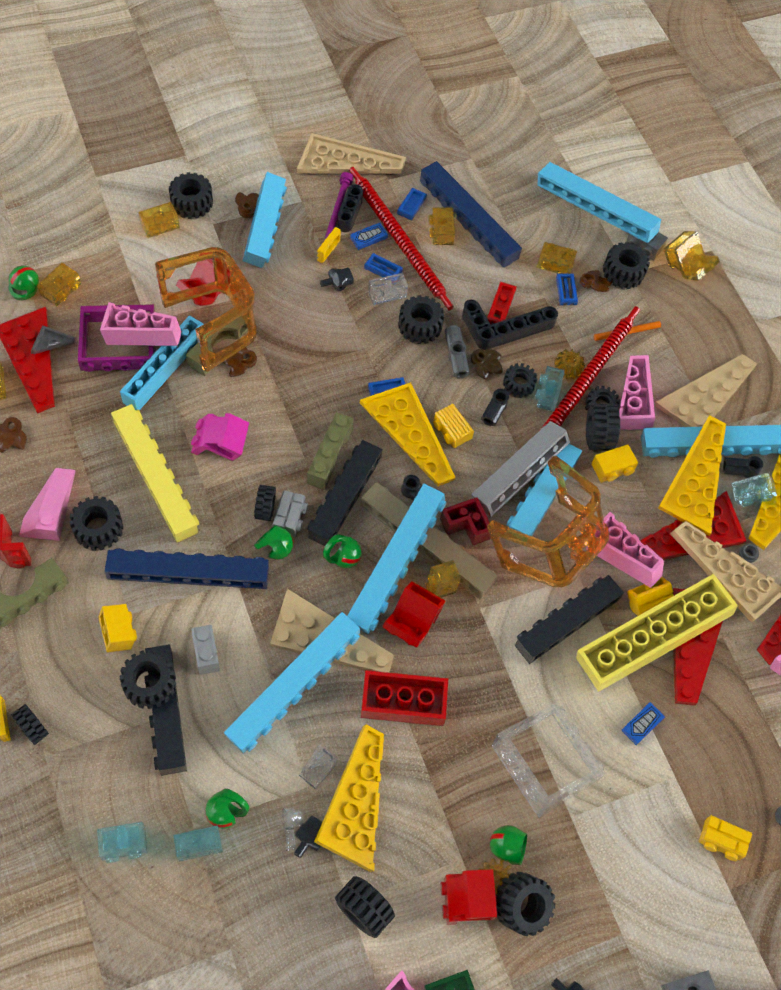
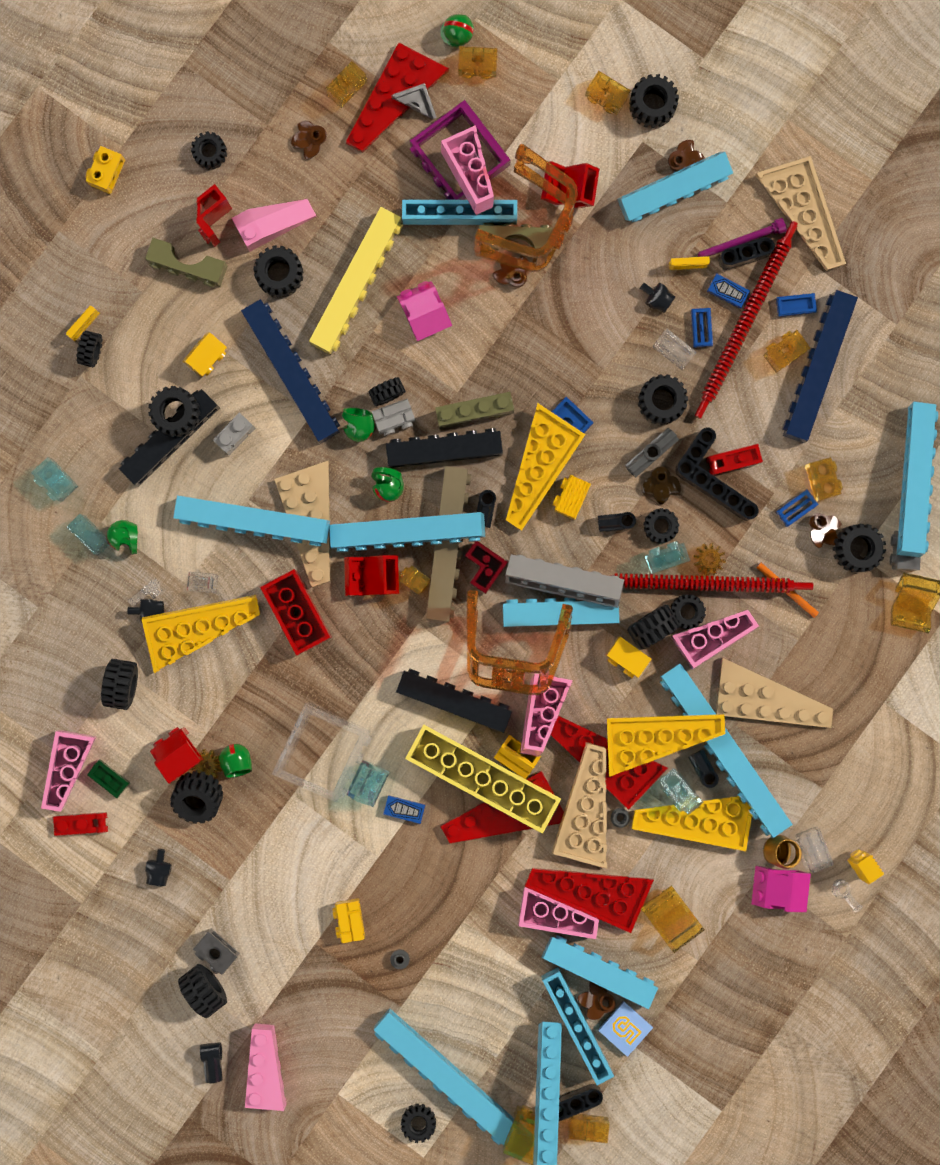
camera: 65 degrees right, 25 degrees up
(602, 736) = (367, 783): none -> clear light blue brick

